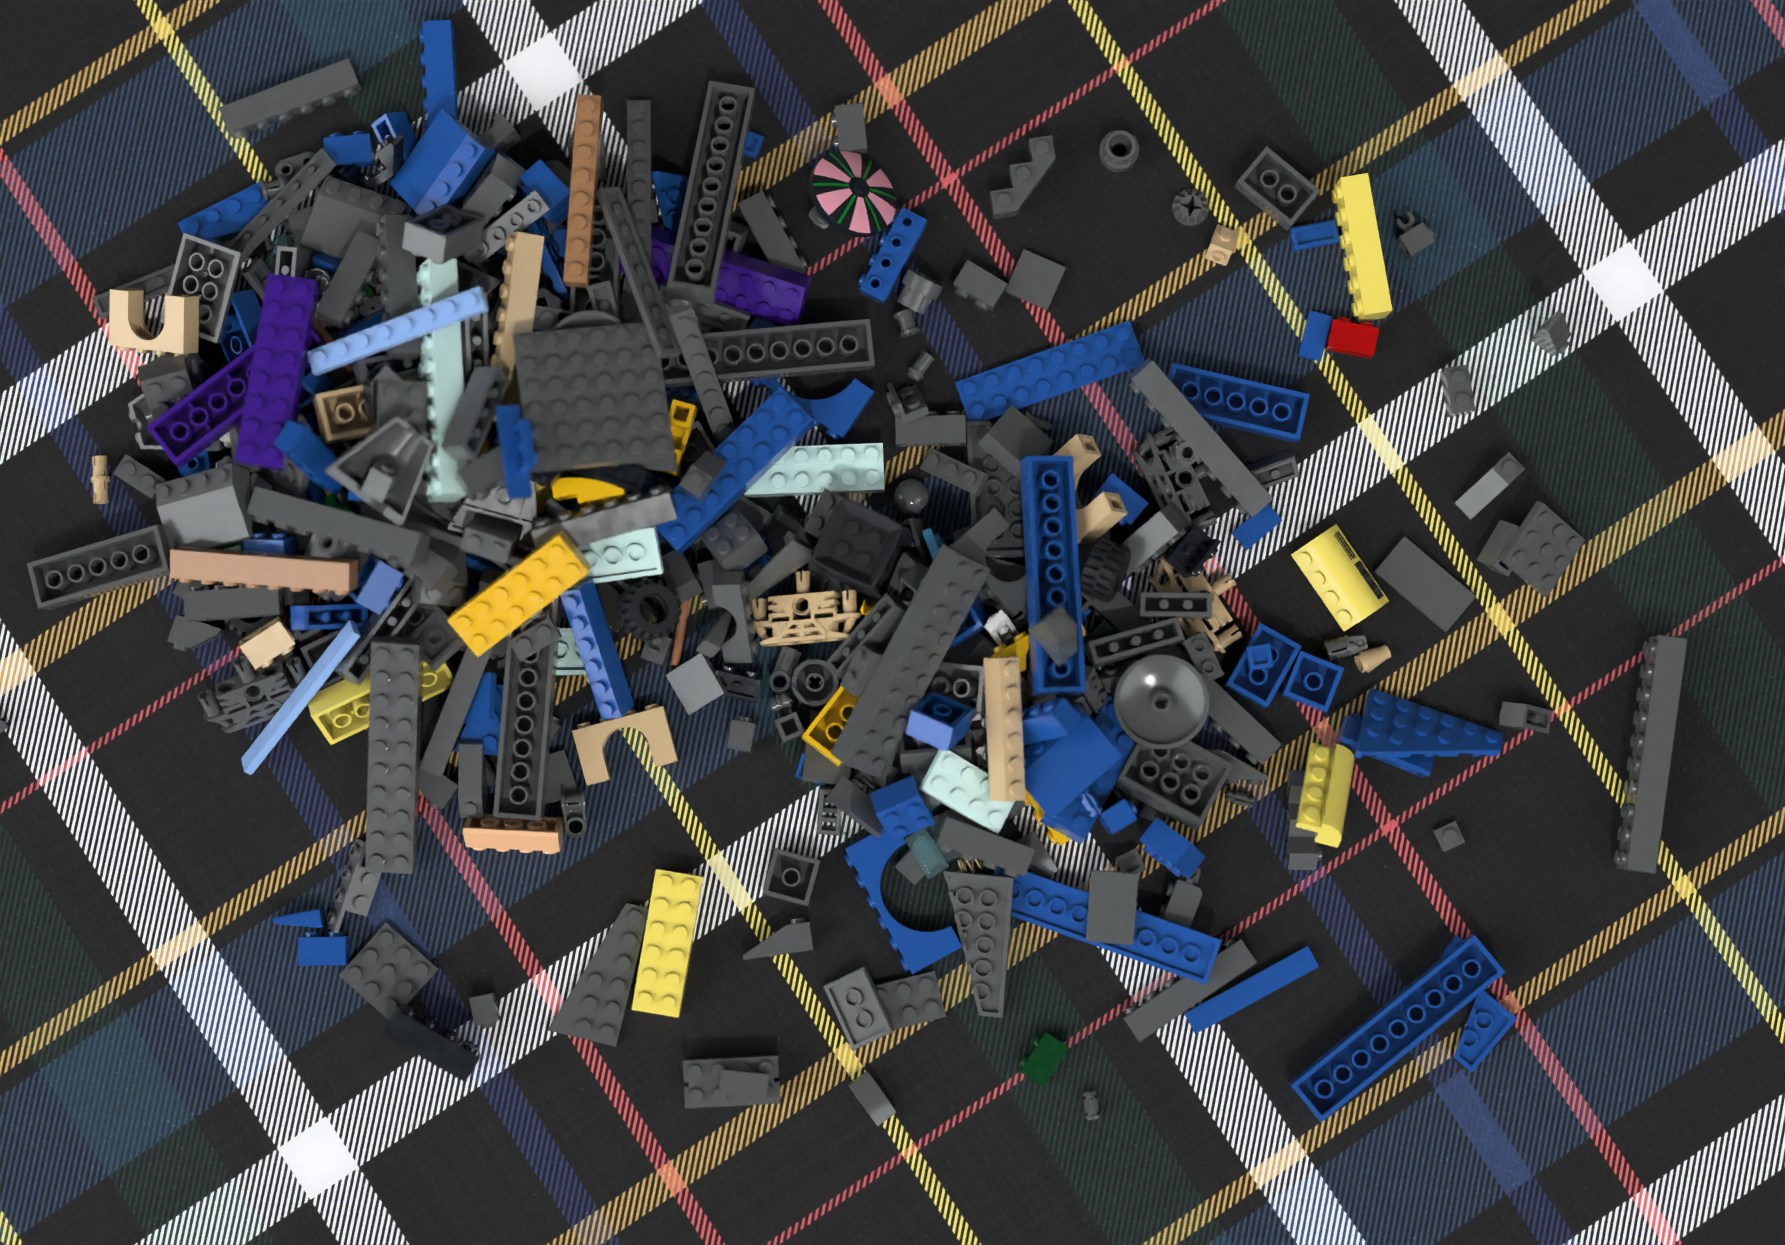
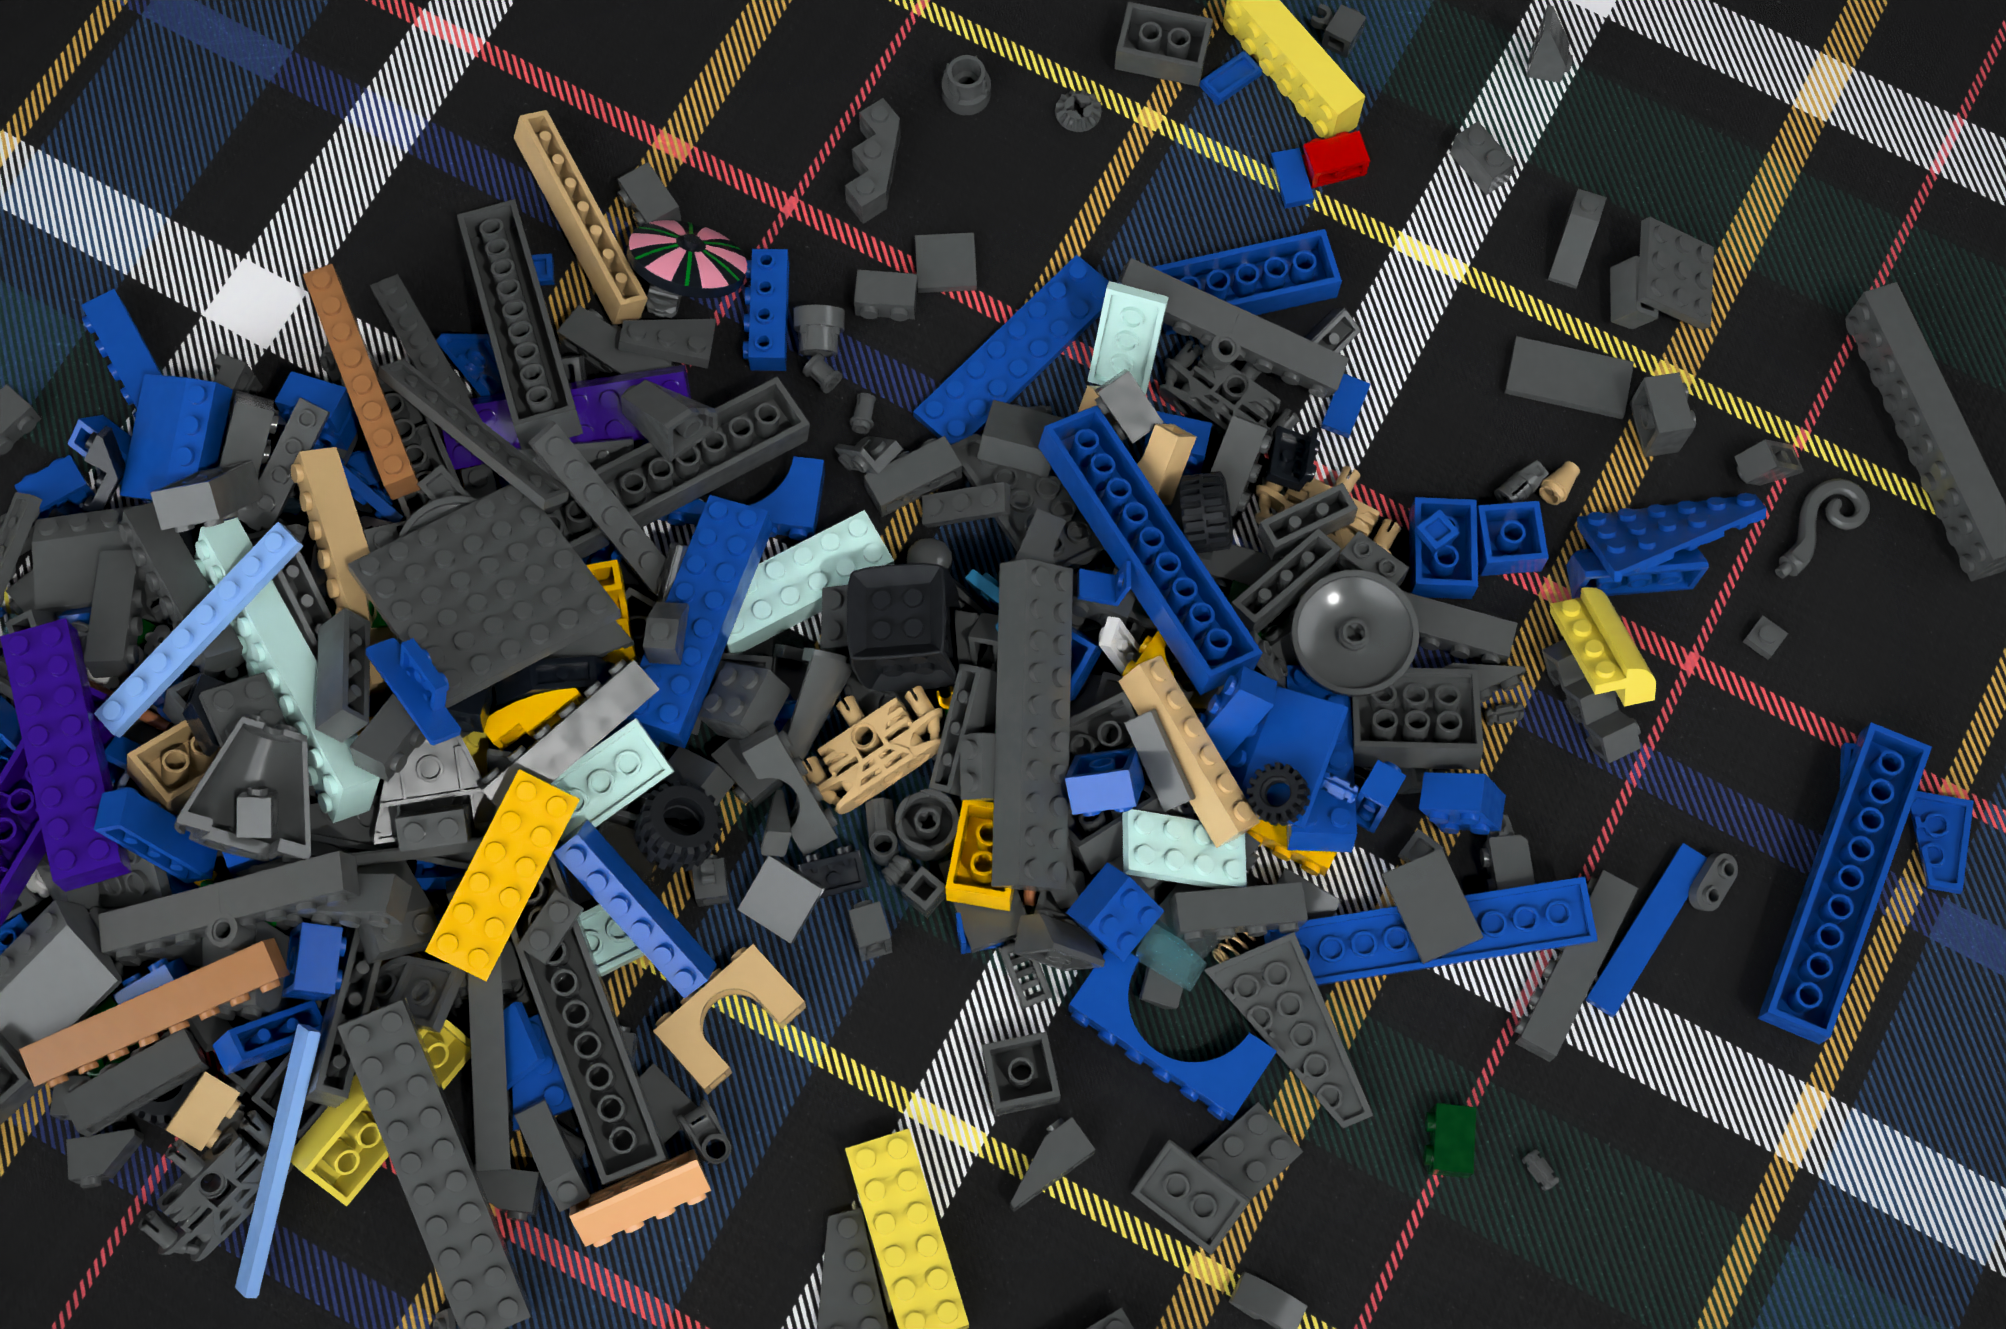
camera: 30 degrees left, 15 degrees down
(679, 634) = (732, 856): nougat bar -> none
(729, 427) = (672, 564): none -> dark grey slope
(776, 319) = (668, 418): none -> dark grey slope
(794, 120) = (580, 217): none -> tan brick
(813, 248) = (670, 339): none -> dark grey wing
(981, 726) = (1159, 760): none -> dark grey tile
(1008, 588) = (1104, 587): none -> blue bracket
(1056, 635) = (1194, 595): dark grey slope -> none
(1059, 789) = (1269, 777): none -> black tyre
(1093, 467) = (1127, 406): none -> brick
(1124, 411) = (1127, 334): none -> light aqua plate
(1221, 245) = (1135, 132): tan bracket -> none
(1312, 981) = (1713, 879): none -> dark grey plate
(1340, 577) = (1471, 413): light yellow brick -> none
(1469, 648) = (1662, 414): none -> dark grey brick
(1507, 792) = (1801, 553): none -> dark grey plant

